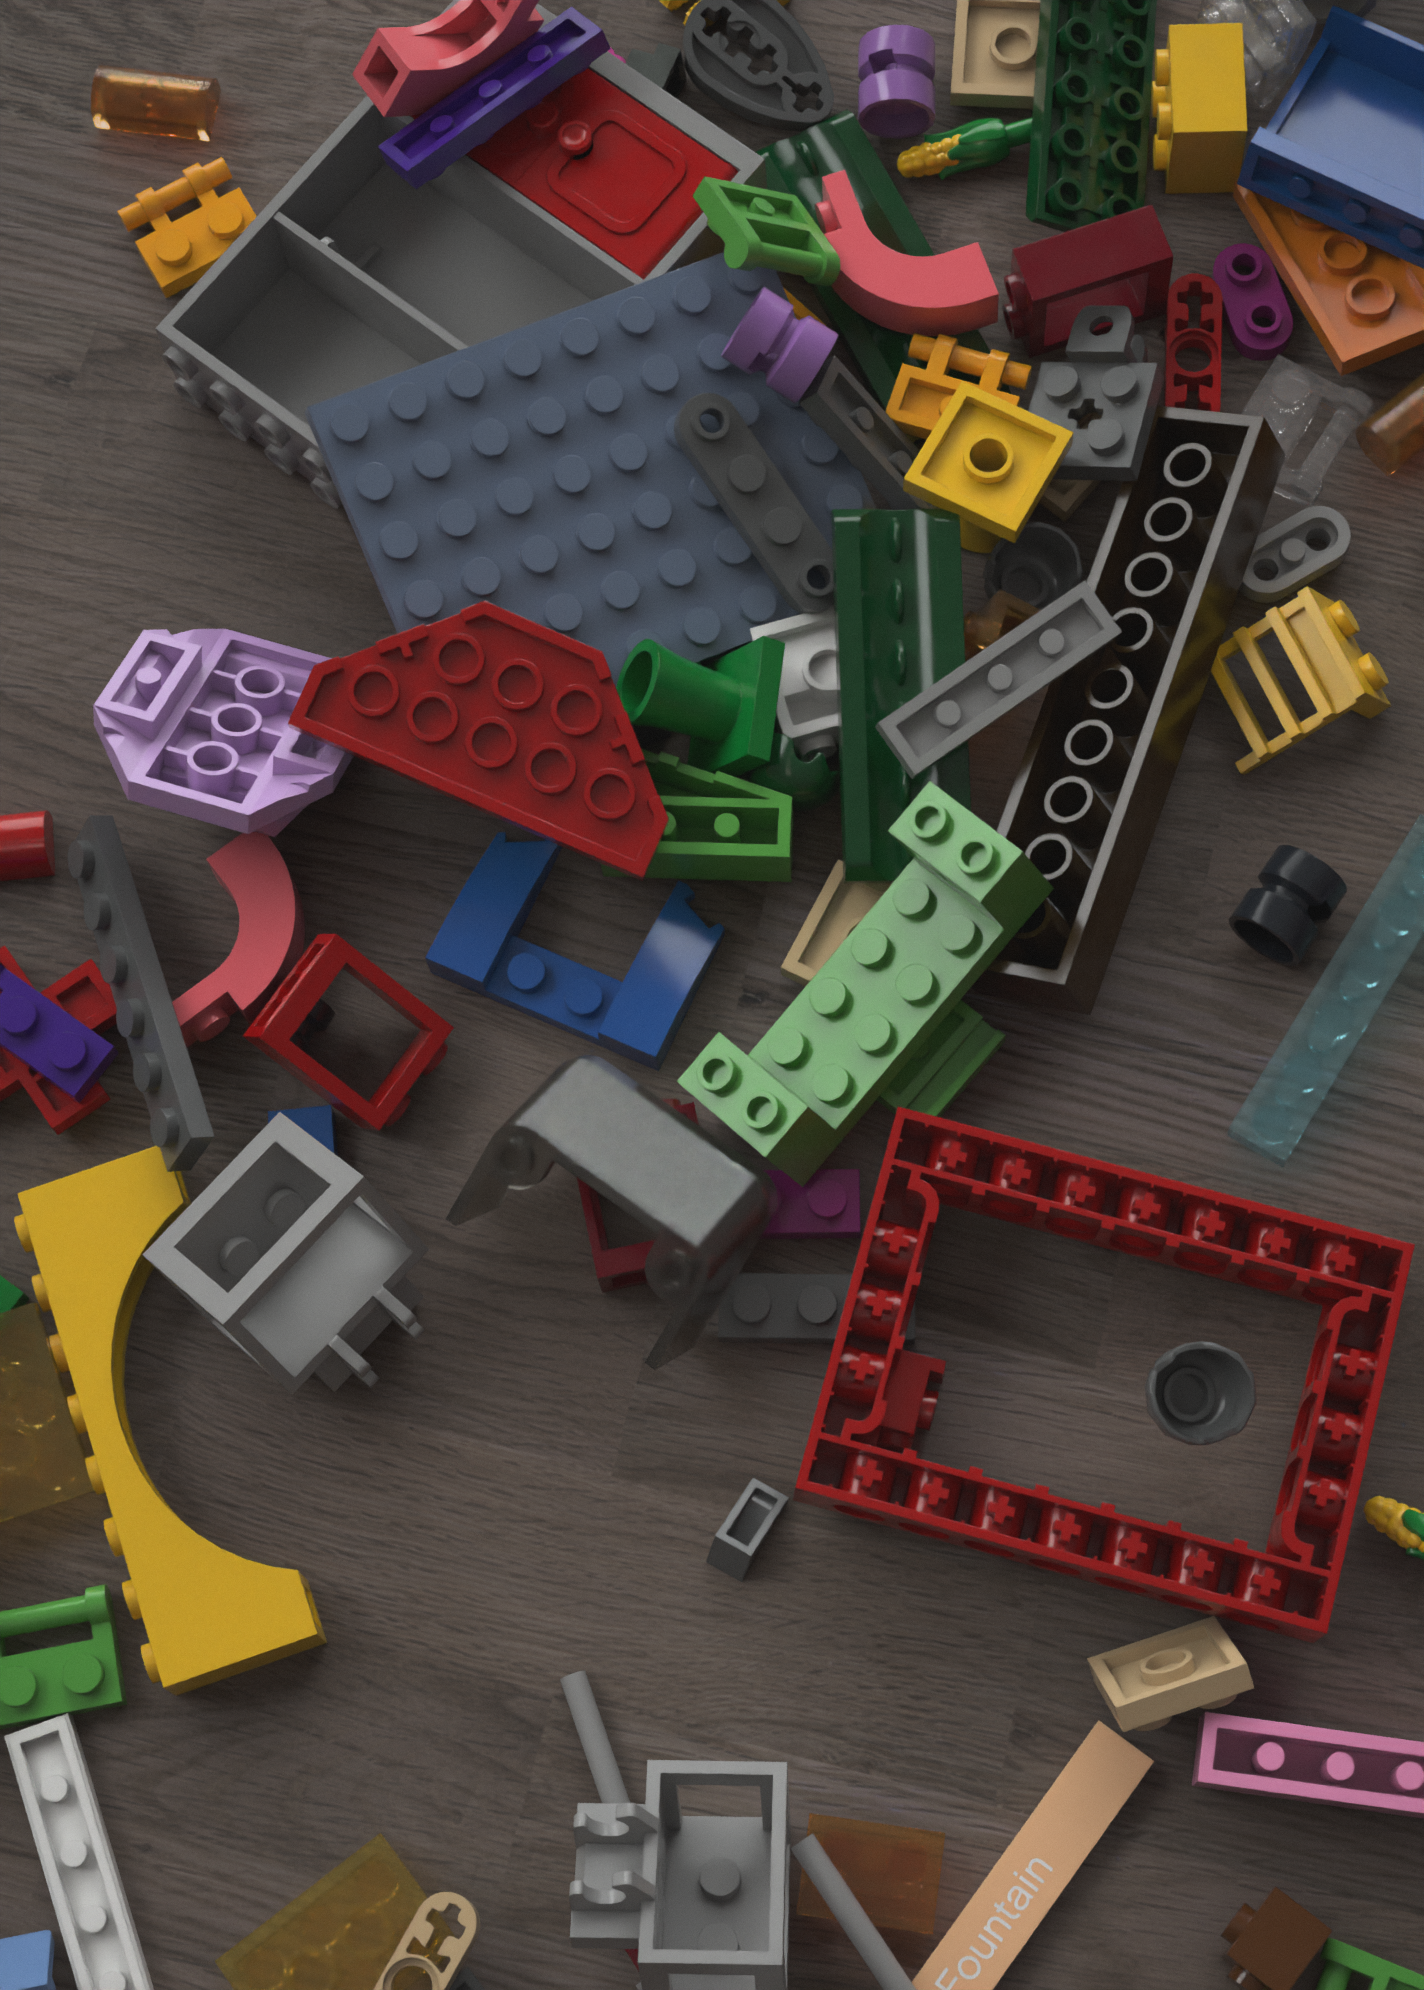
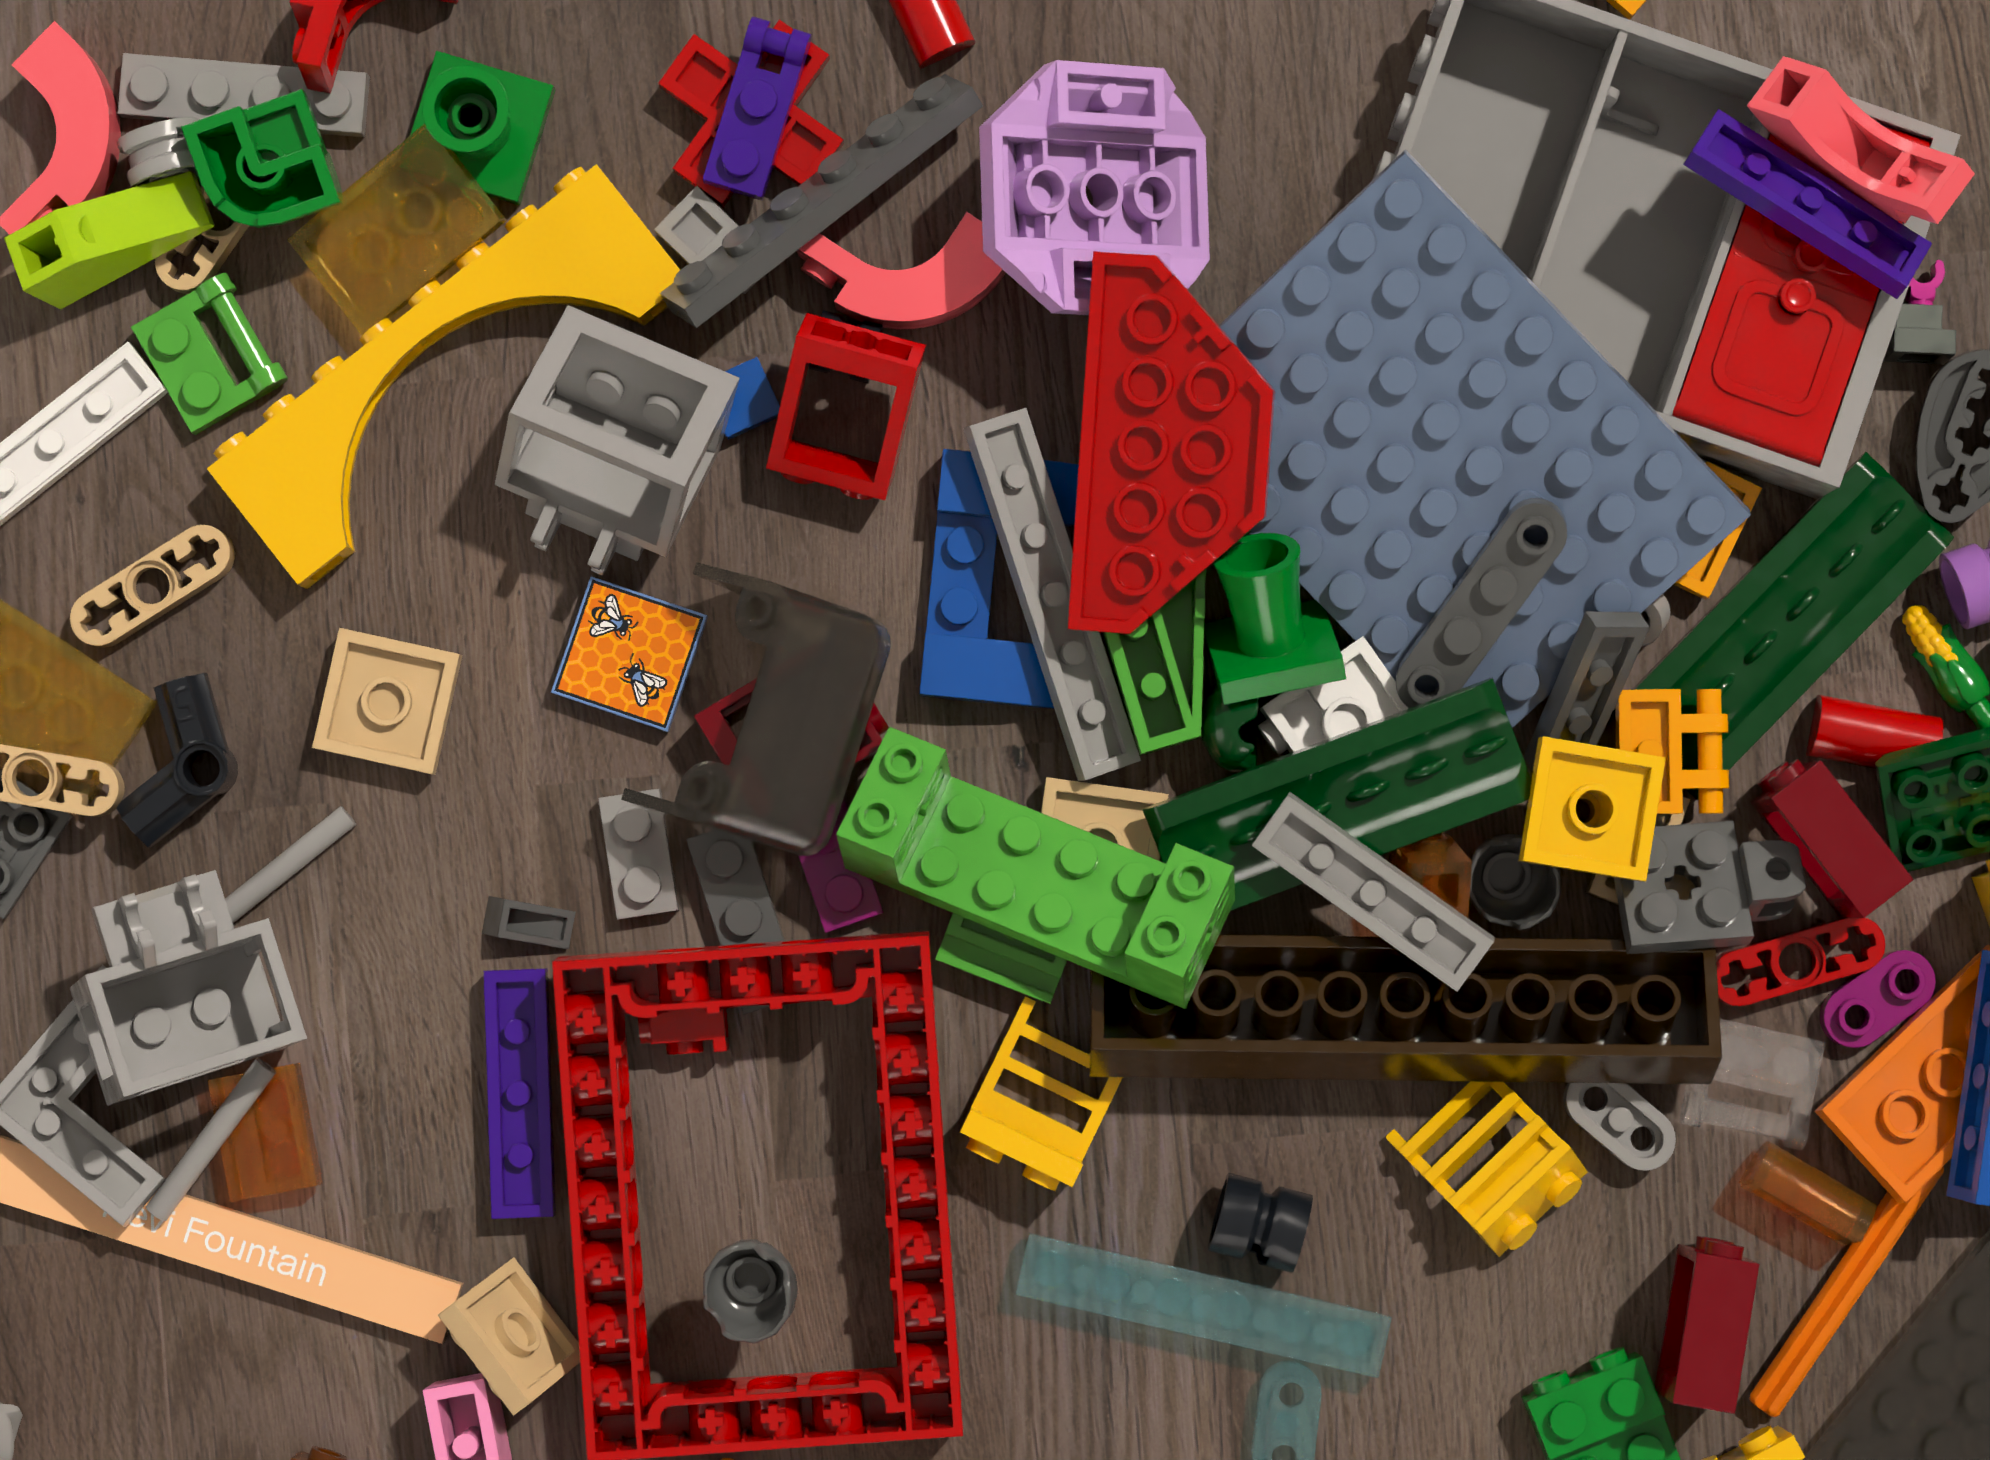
camera: 60 degrees right, 15 degrees up
(119, 1124) = (695, 227): none -> light grey plate
(288, 1845) = (121, 622): none -> tan beam
(426, 1804) = (172, 793): none -> black piece
(470, 1592) = (387, 701): none -> tan plate
(513, 1335) = (629, 654): none -> tile
(604, 899) = (1041, 569): none -> light grey plate
(719, 1394) = (638, 858): none -> light grey plate
(767, 231) = (1775, 509): bright green plate -> none
(779, 345) = (1634, 574): medium lavender wheel -> none
(902, 291) = (1757, 657): coral arch -> none
(919, 1592) = (519, 1093): none -> dark purple plate
(1004, 224) = (1865, 732): none -> red brick
(1120, 1113) = (1011, 1128): none -> yellow plate

